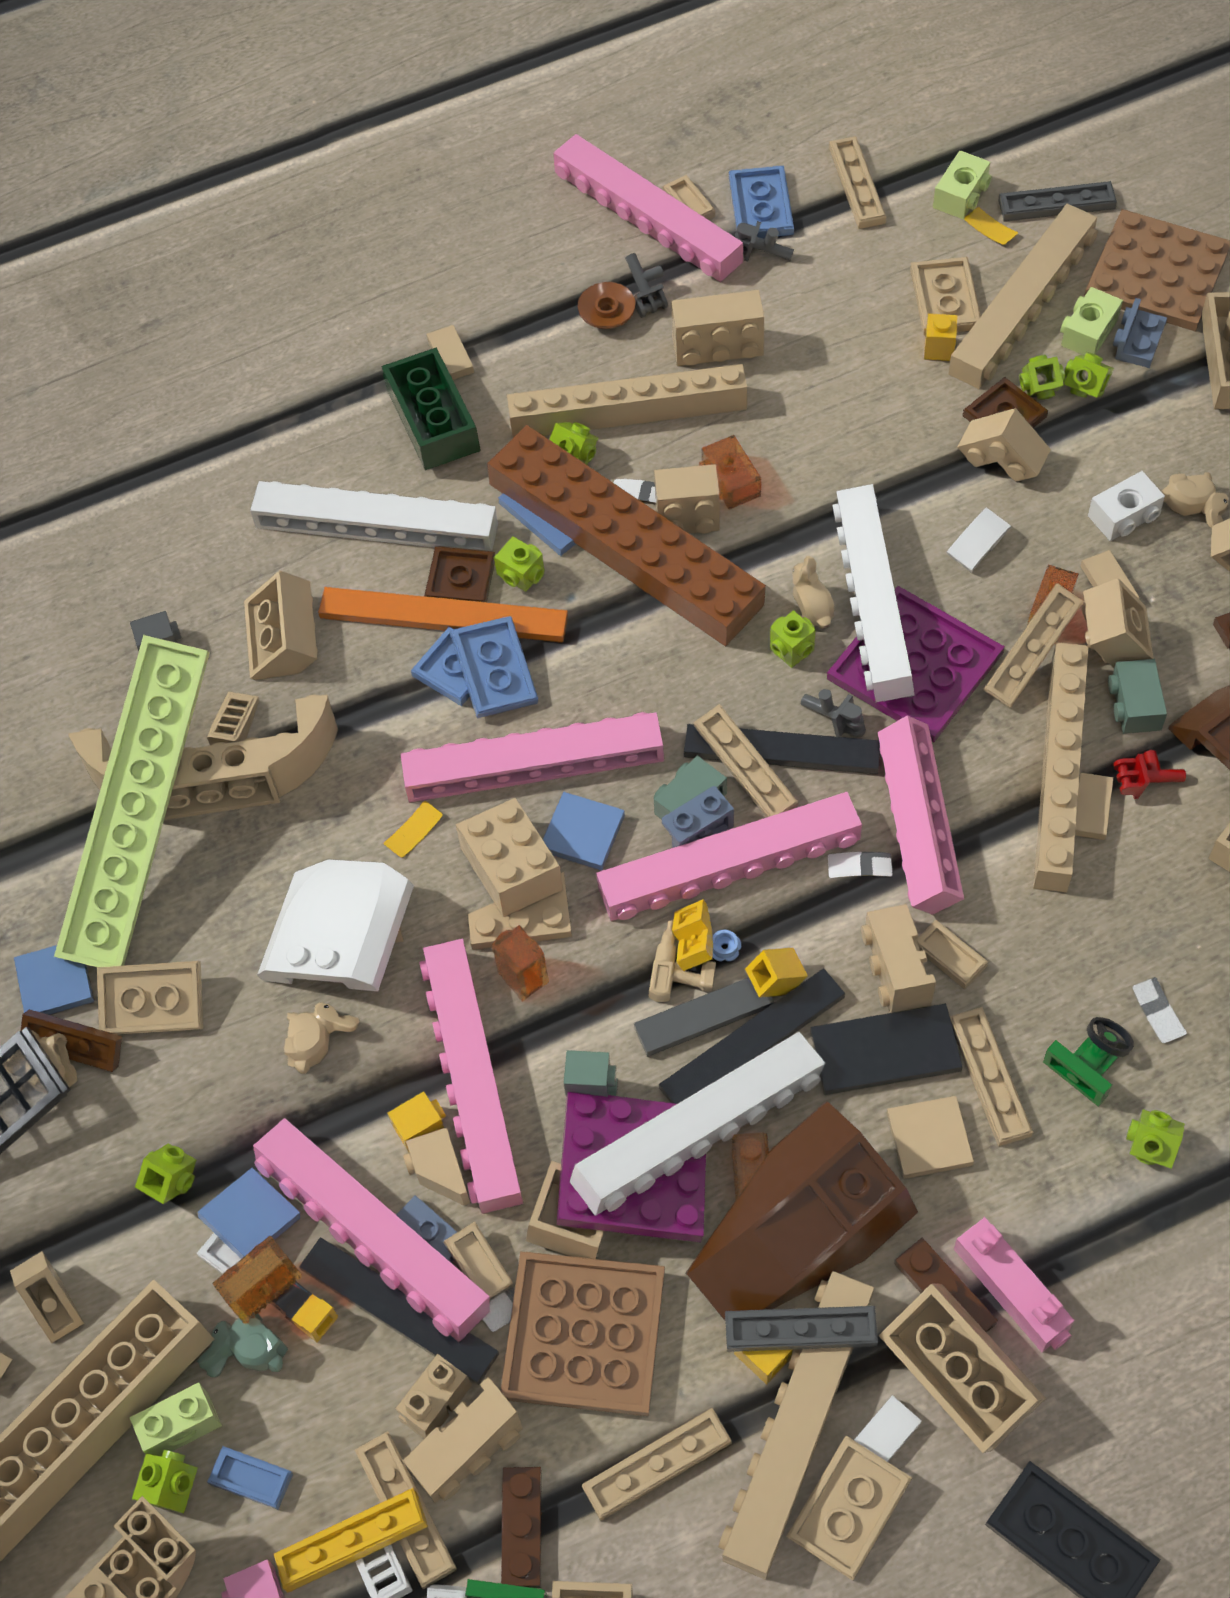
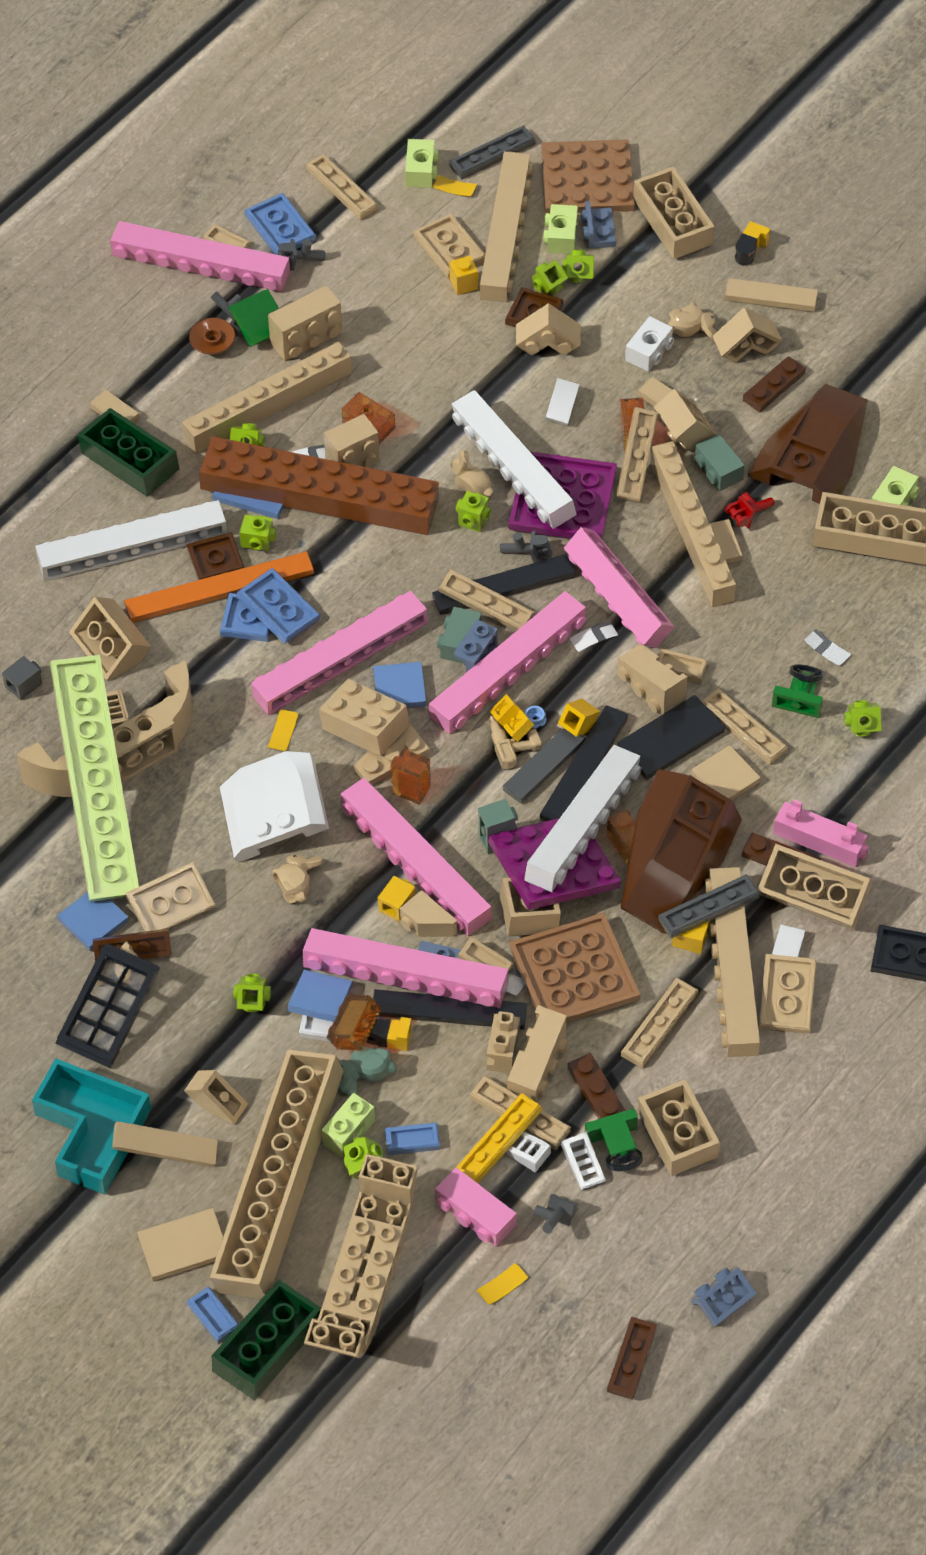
camera: 30 degrees left, 5 degrees down
(656, 296) = (252, 316): none -> green tile

